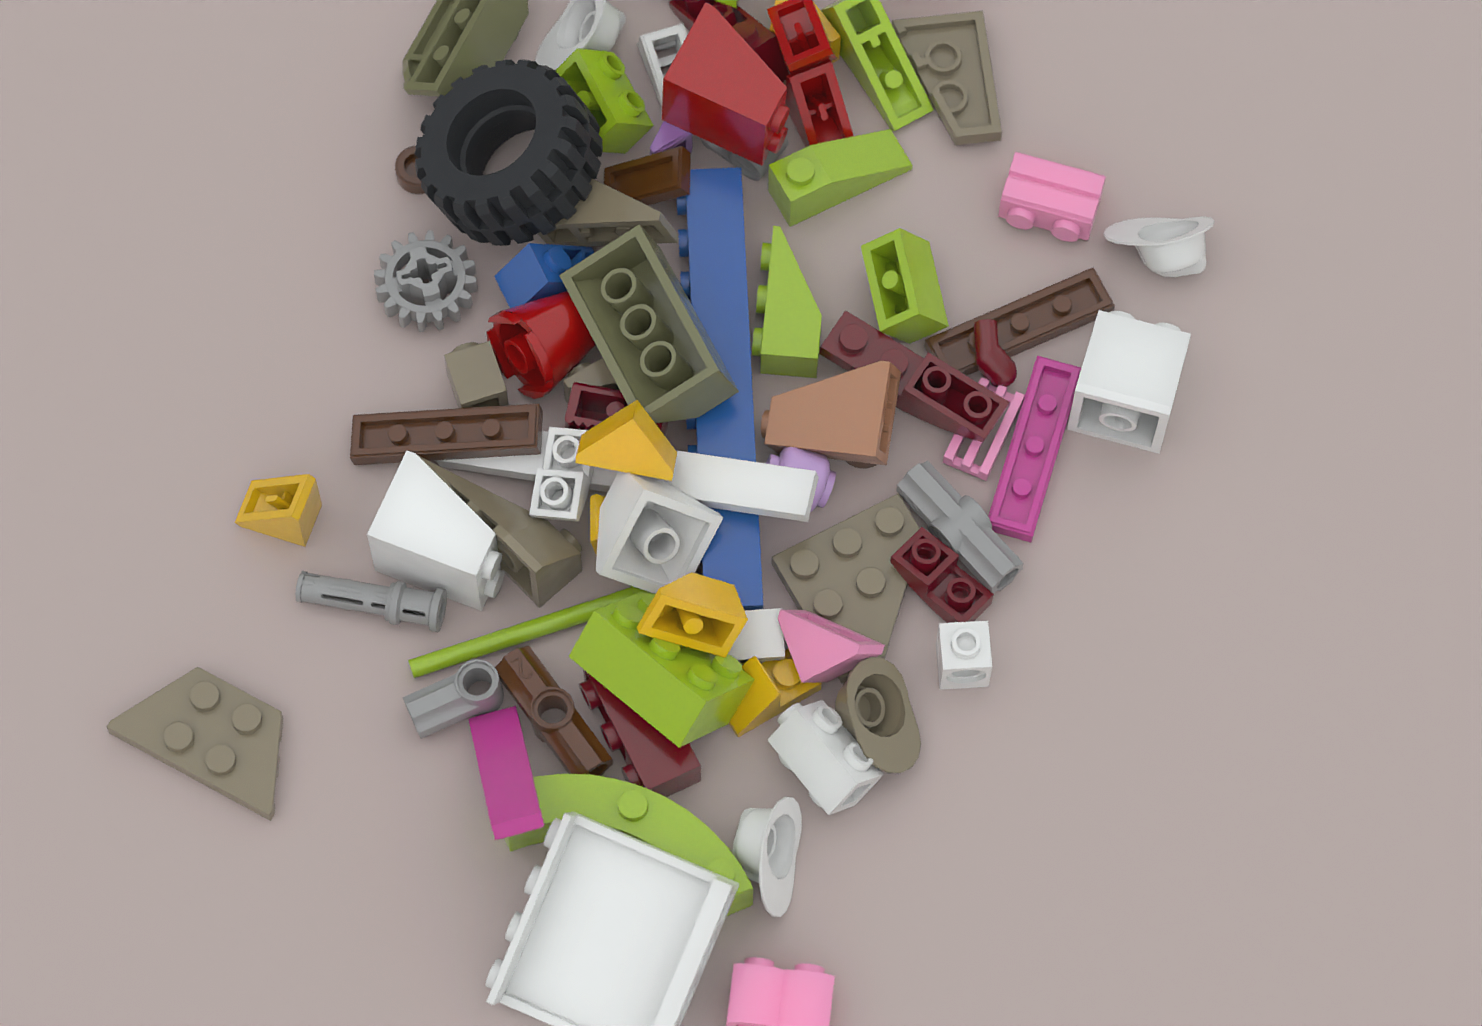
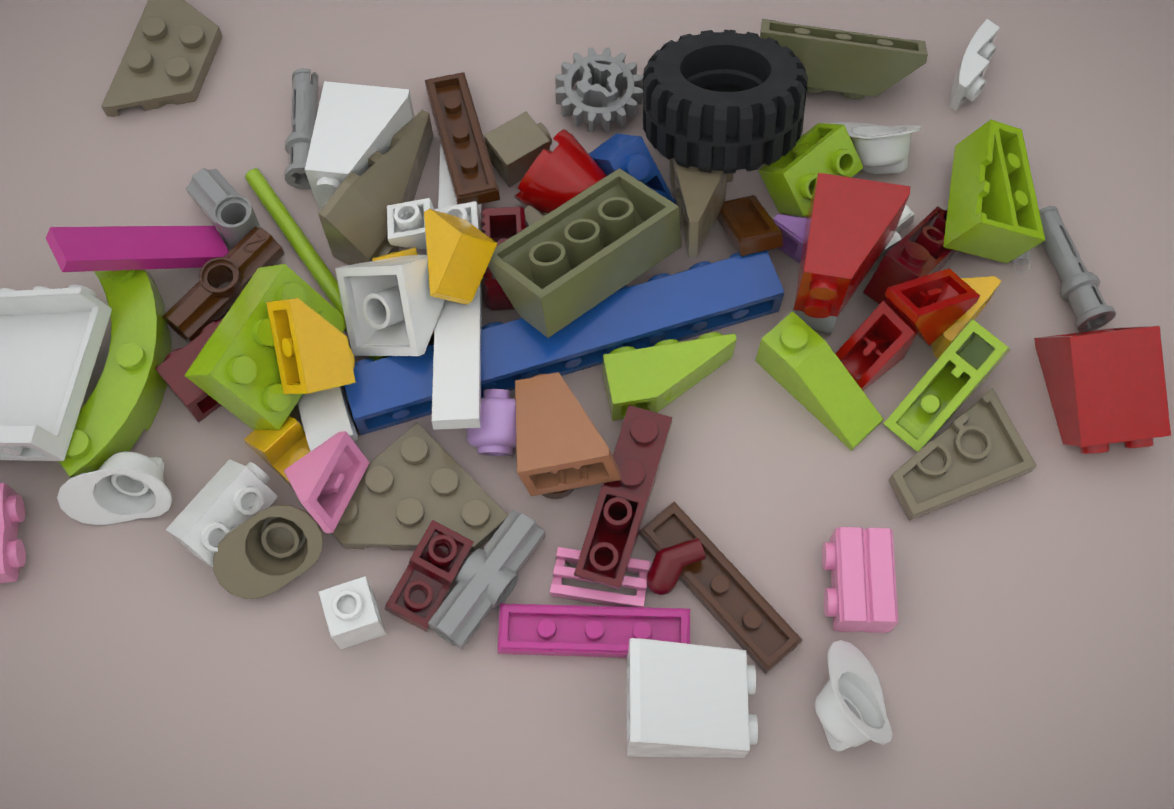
camera: 75 degrees right, 0 degrees up
(282, 507) = (366, 49): yellow slope -> none
(904, 286) = (715, 464): lime brick -> none

